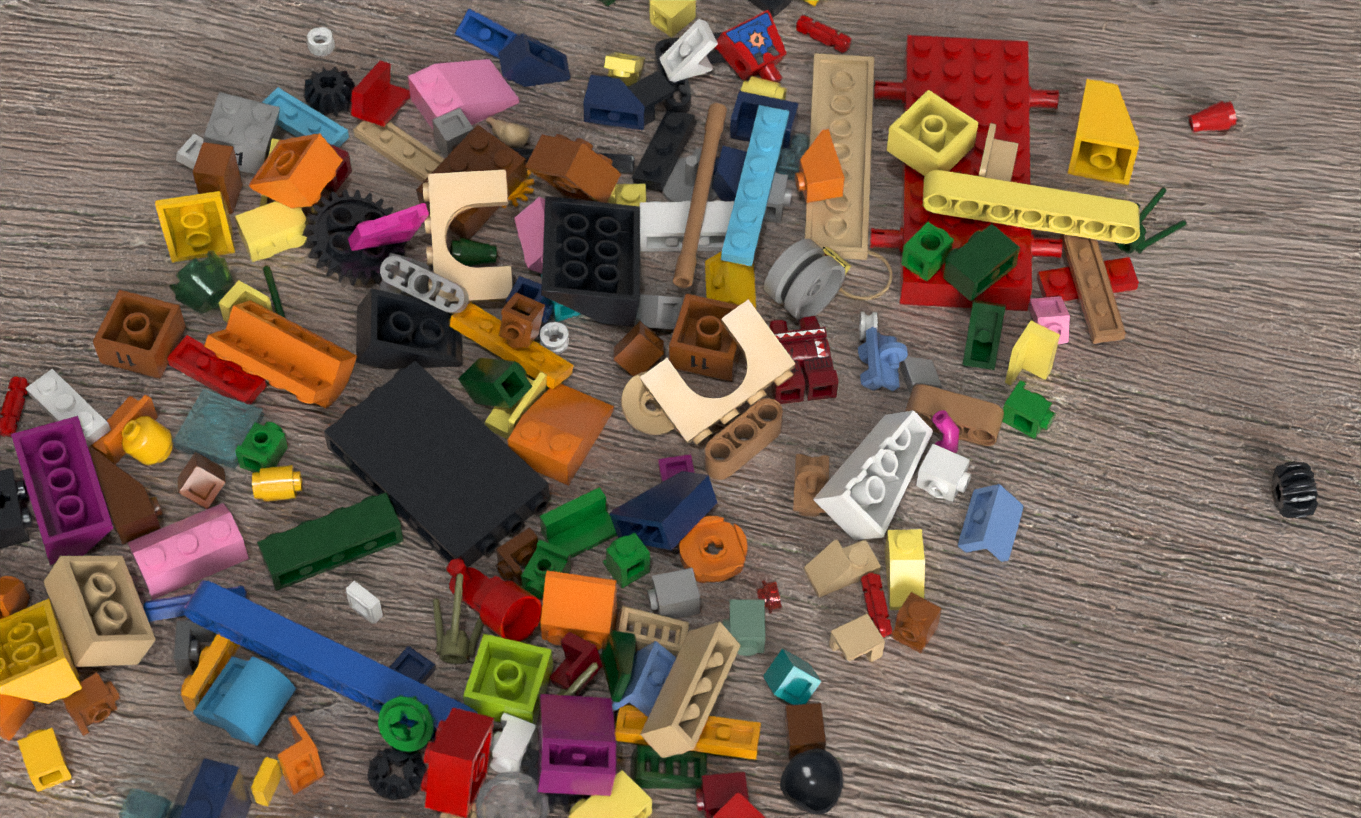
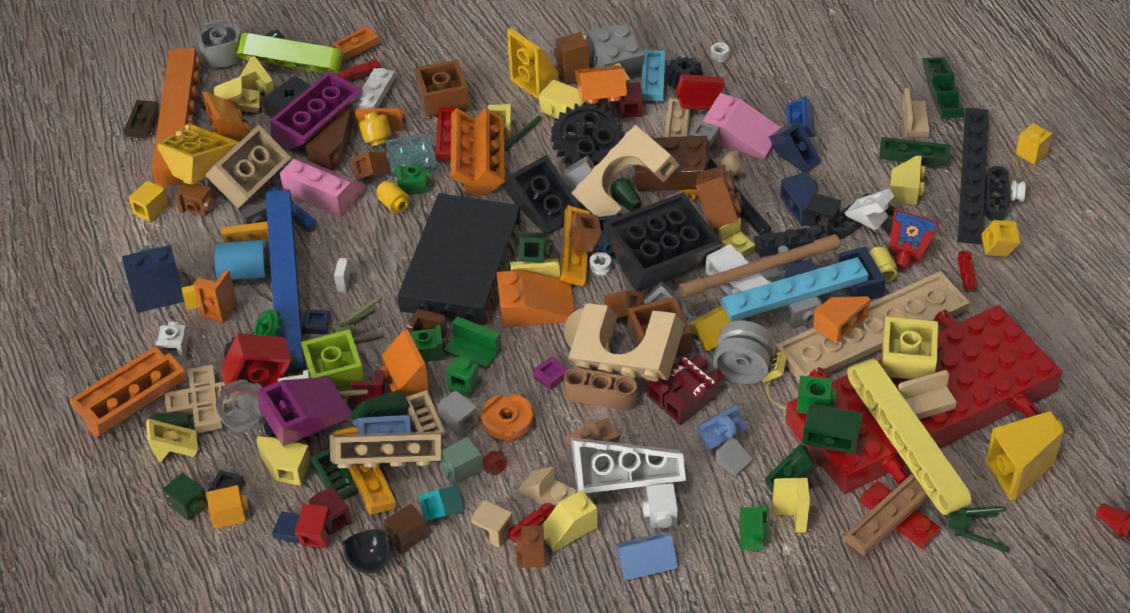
camera: 60 degrees right, 10 degrees down
(203, 283) = (497, 90): clear green cone -> none
(330, 541) = (371, 239): dark green brick -> none
(388, 229) = (594, 138): dark pink wing -> none
(400, 283) = (579, 184): light grey beam -> none
(501, 604) = (379, 329): red piece -> none
(624, 67) = (834, 186): light yellow slope -> none
(666, 511) = (513, 376): dark blue slope -> none
(866, 322) = (747, 408): white bush -> none
(949, 431) = (693, 493): dark pink arm -> none
(977, 419) = (714, 490): medium nougat beam -> none
(1051, 314) = (842, 504): bright pink bracket -> none

